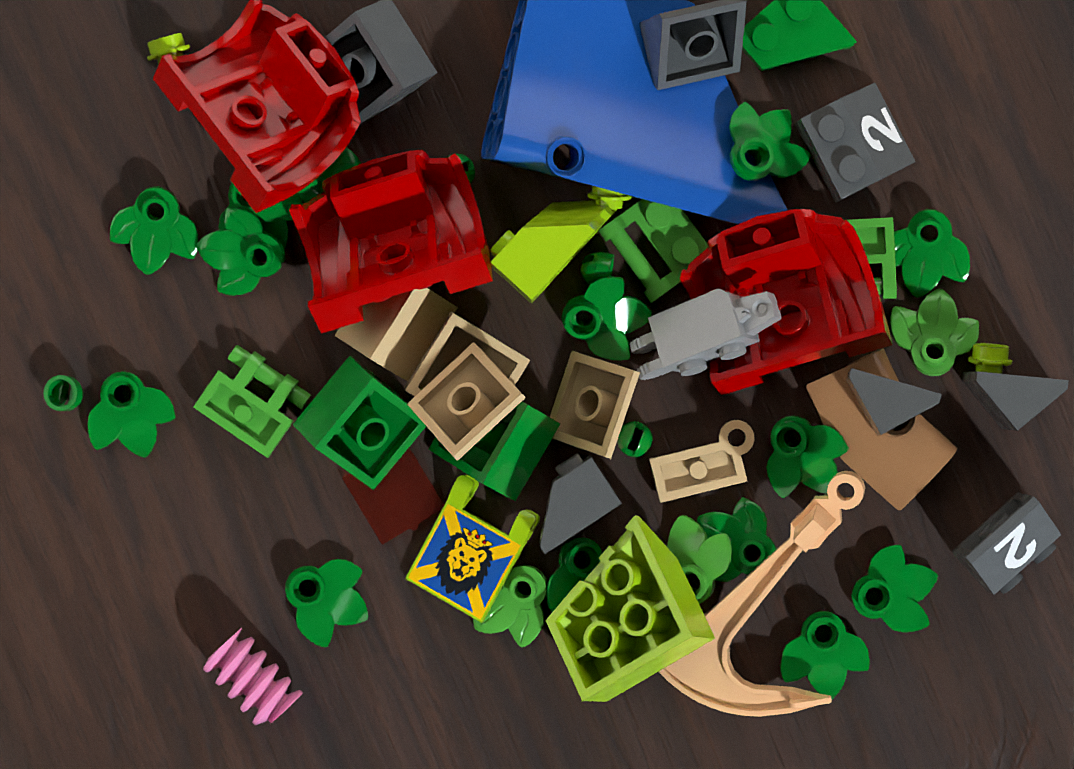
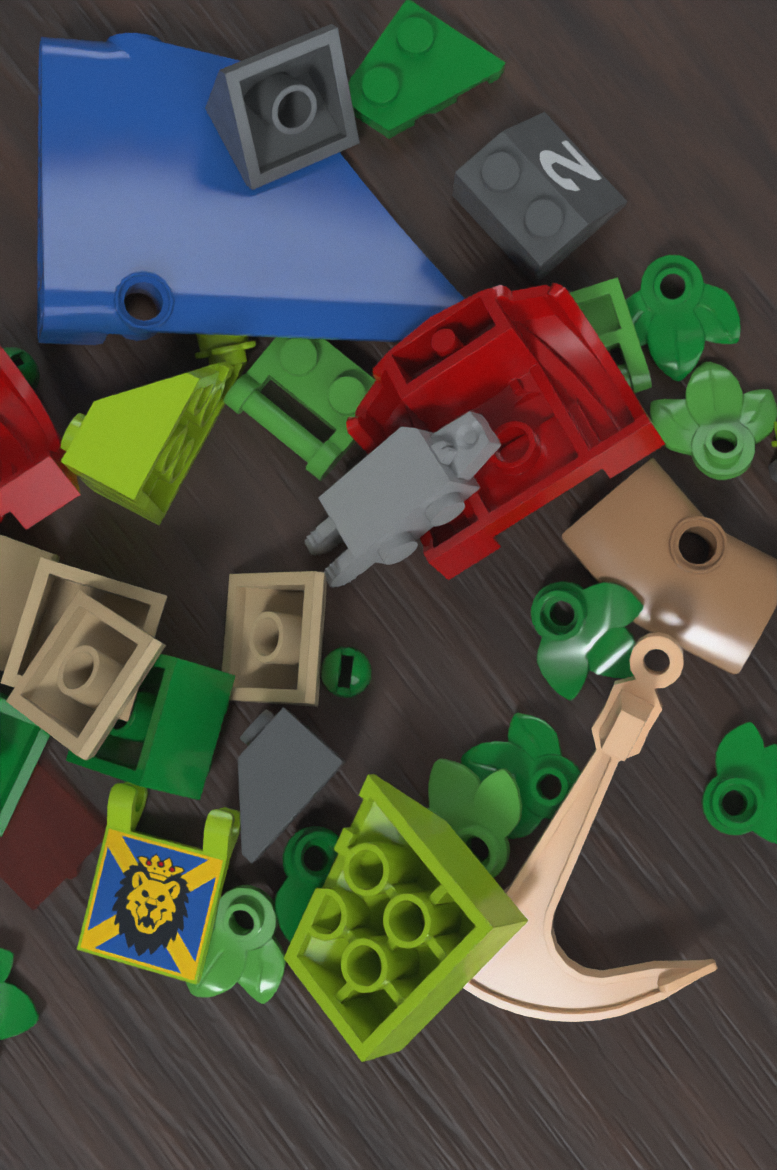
camera: 10 degrees left, 5 degrees down
(596, 266) = (236, 453): green hinge -> none
(611, 321) = (272, 515): green plate -> none
(703, 466) = (449, 684): tan hinge -> none
(767, 141) = (420, 223): green plate -> none
(825, 660) = (687, 912): green plate -> none
(889, 401) = (681, 515): dark grey slope -> none

